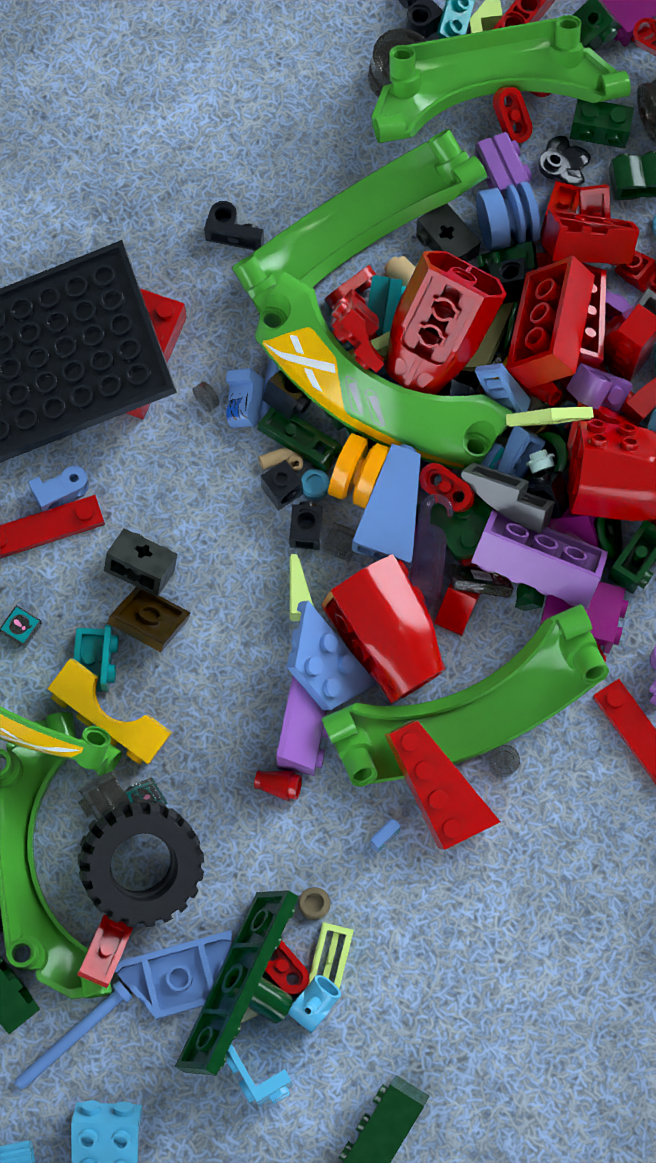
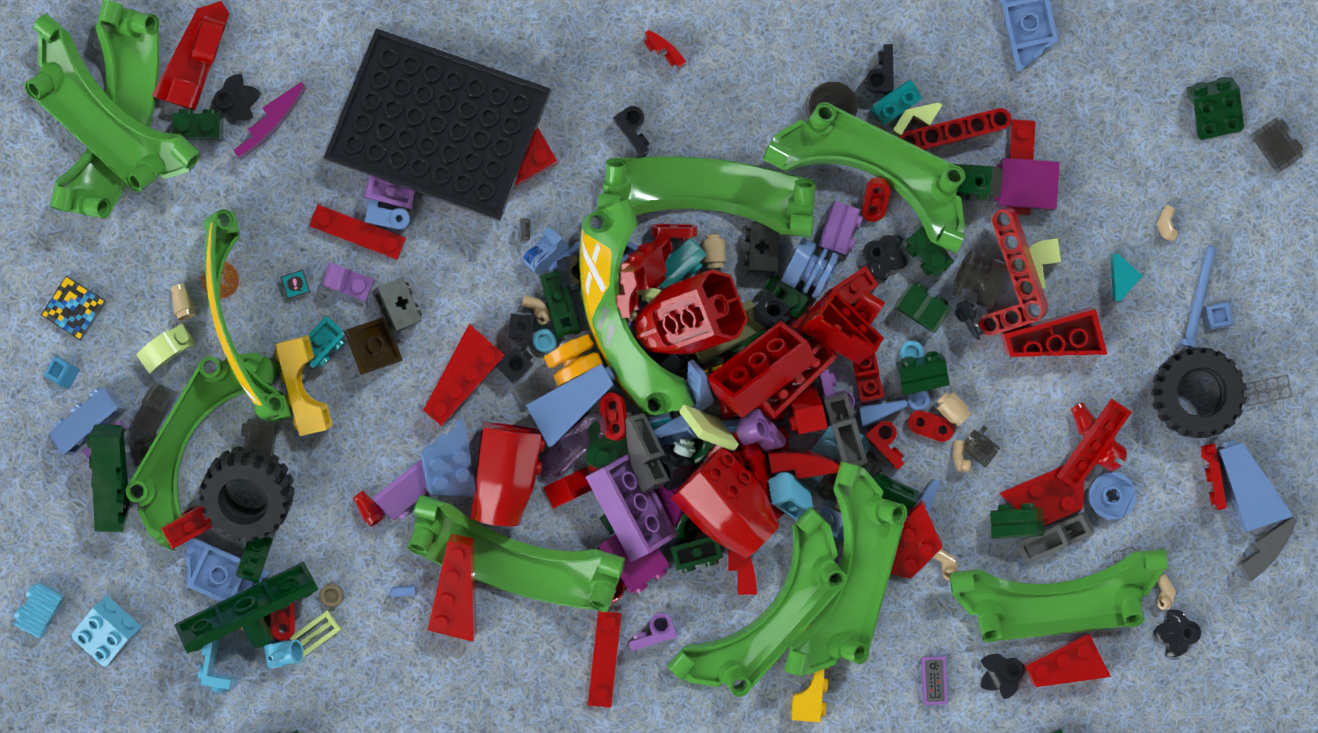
camera: 40 degrees right, 15 degrees up
(42, 462) = (388, 193): none -> medium lavender plate
(65, 584) = (347, 281): none -> medium lavender plate
(71, 1037) = (179, 555): medium blue bar -> none
(145, 790) = (286, 451): clear smoke tile -> none
(191, 137) = (658, 44): none -> red slope
(203, 929) = (254, 559): none -> dark green plate
(262, 565) = (465, 372): none -> red wedge
(298, 587) = (473, 407): yellowish green slope -> none
(479, 581) = (579, 483): clear smoke tile -> none
(504, 761) = (512, 604): clear smoke tile -> none

